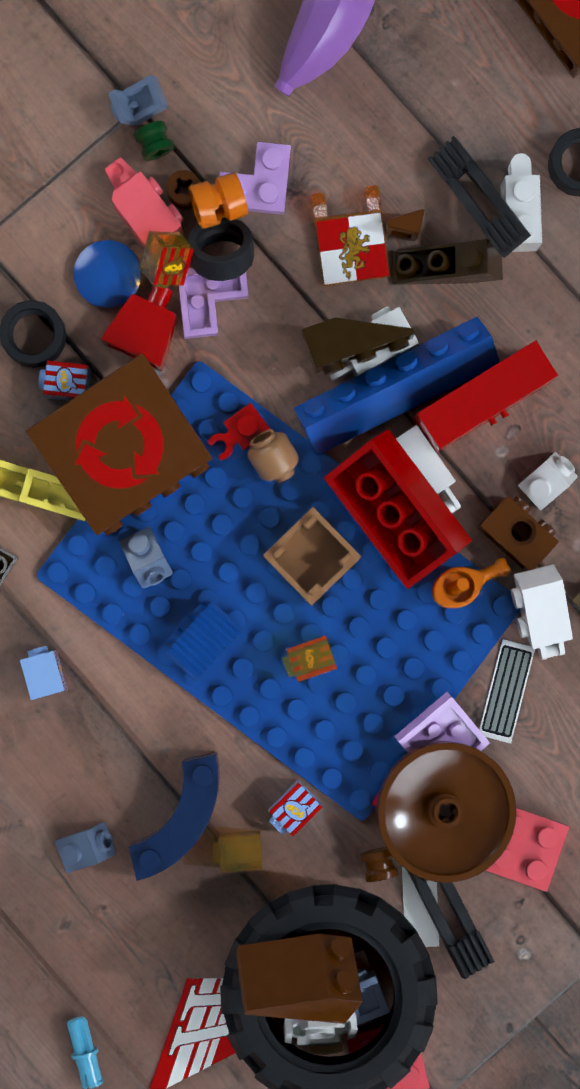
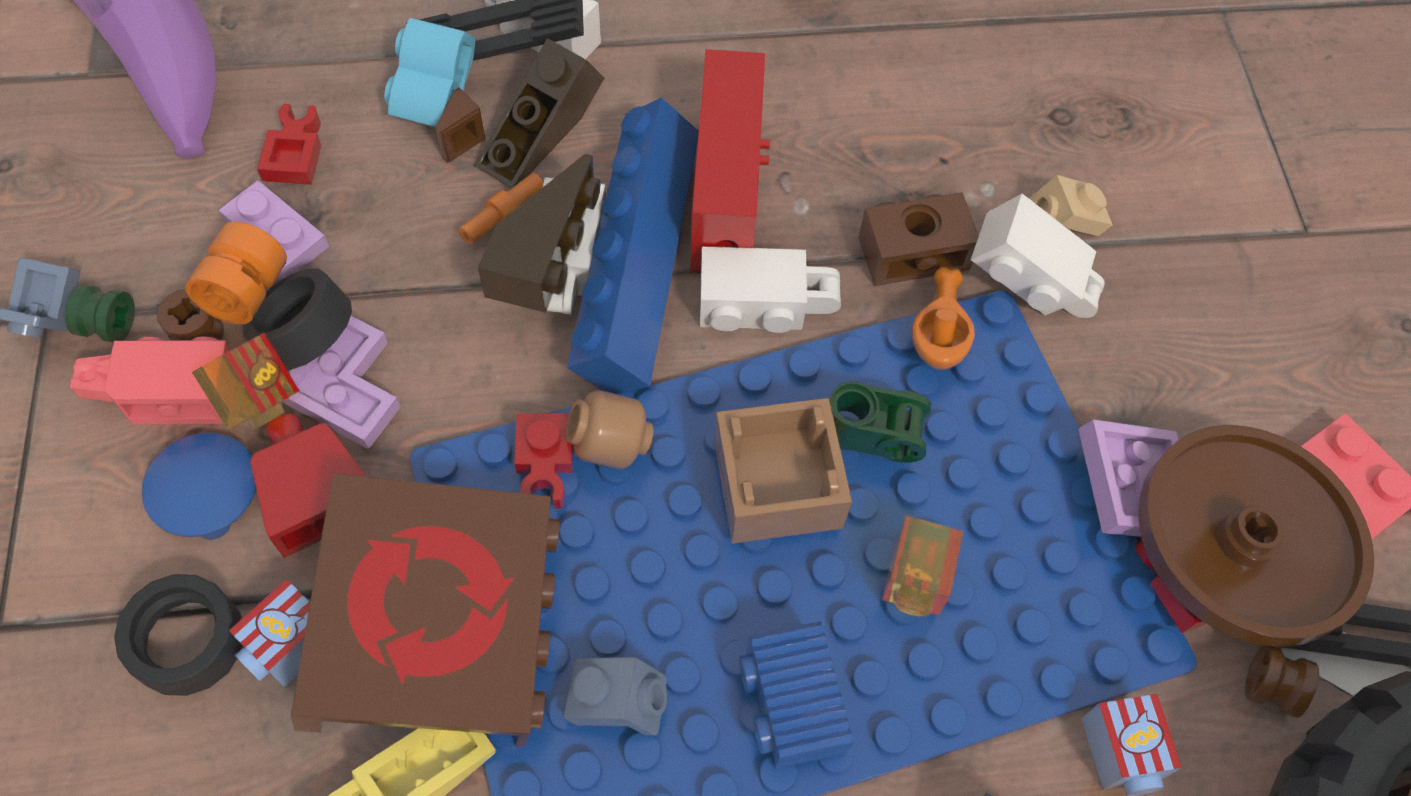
camera: 50 degrees left, 25 degrees down
(321, 146) = (294, 151): none -> red plate
(351, 244) = (424, 195): flag -> none
(373, 290) = (499, 207): none -> orange bar
(378, 590) = (881, 421): none -> dark green piece
(397, 508) = (798, 321): red brick -> none
(423, 184) = (430, 69): none -> medium azure brick
(506, 691) = (1109, 377): sticker -> none
(548, 480) = (874, 172): white bracket -> none

